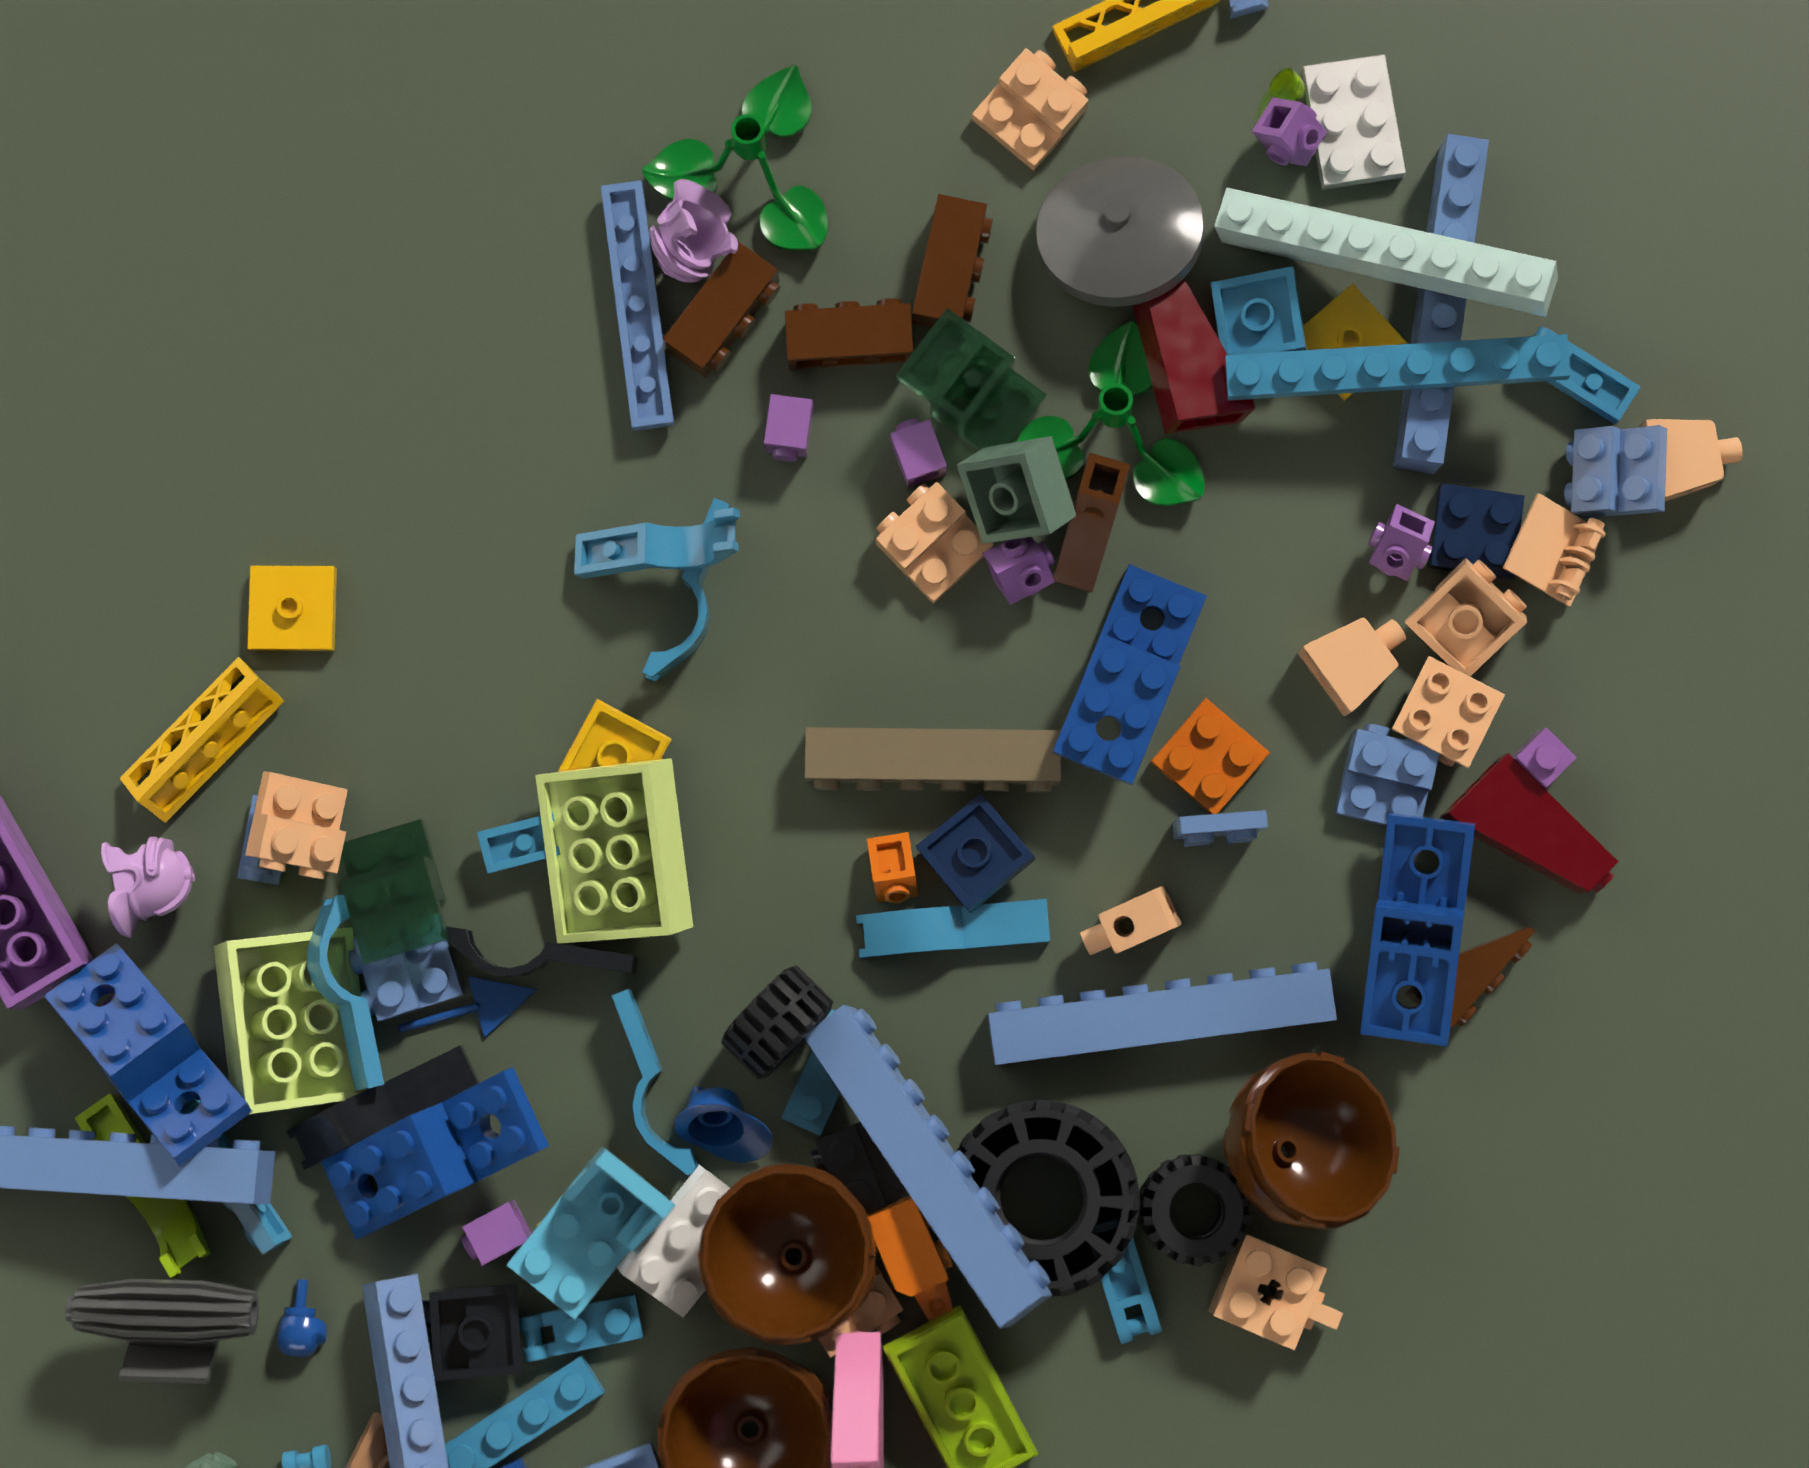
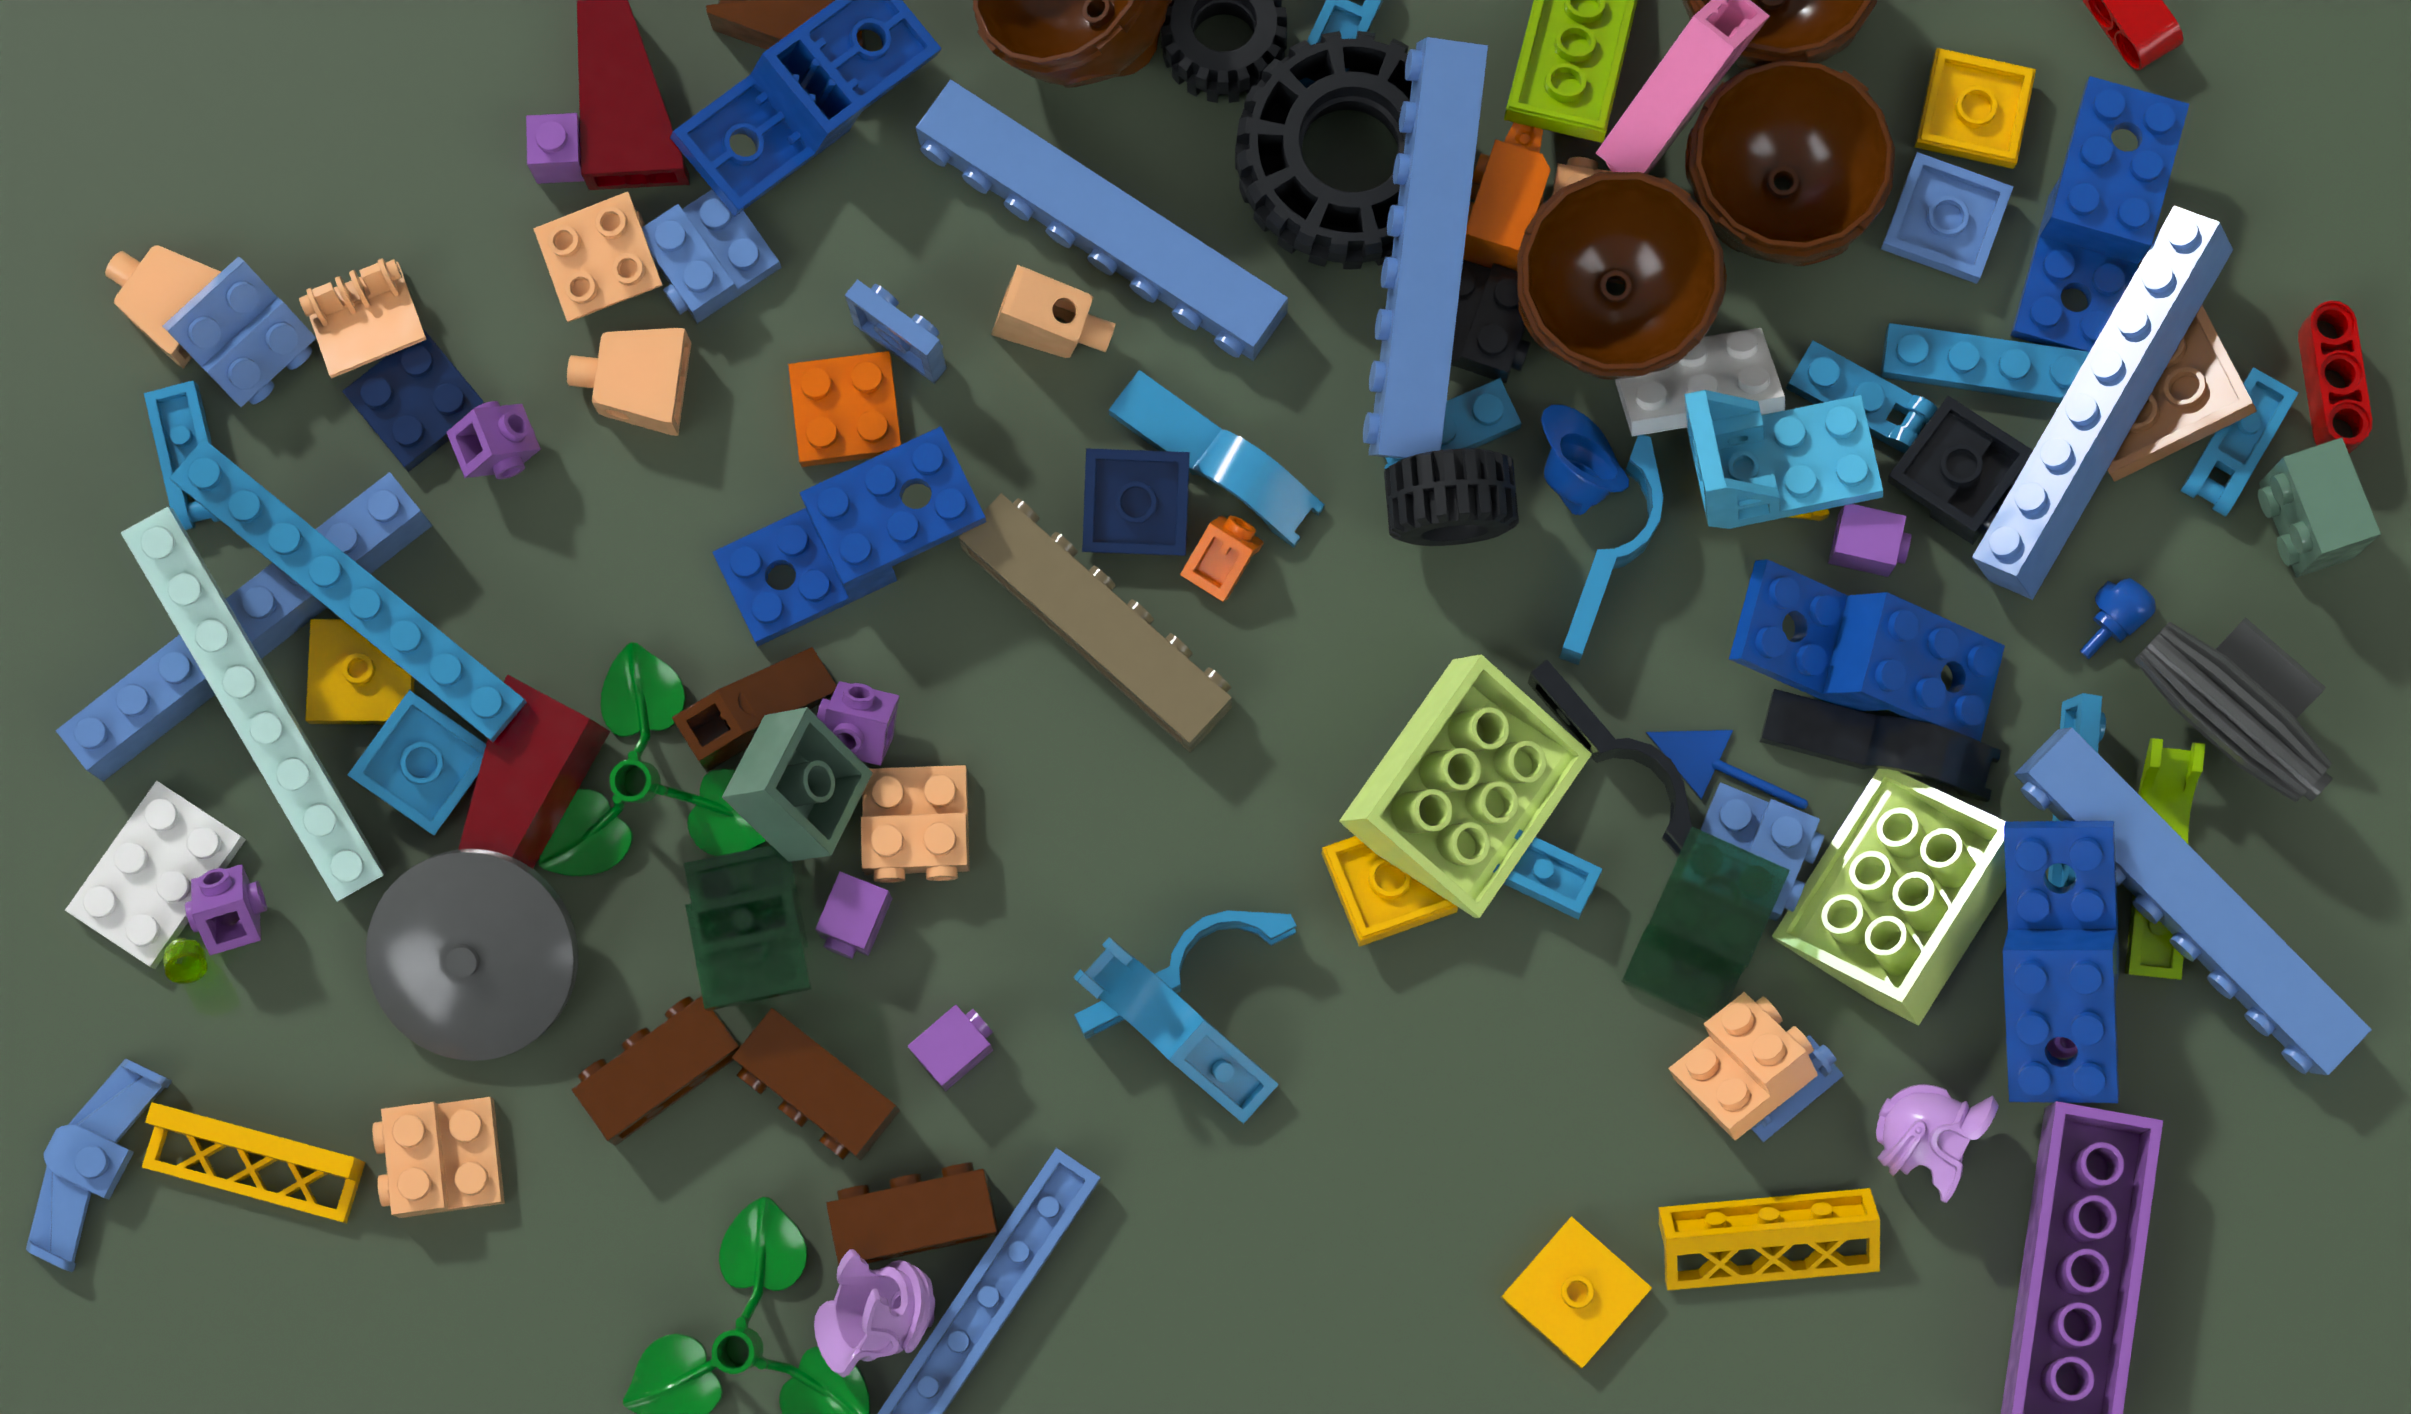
camera: 135 degrees left, 5 degrees down
(353, 1009) = (1836, 844): dark azure piece -> none
(1468, 617) = (498, 325): light nougat plate -> none

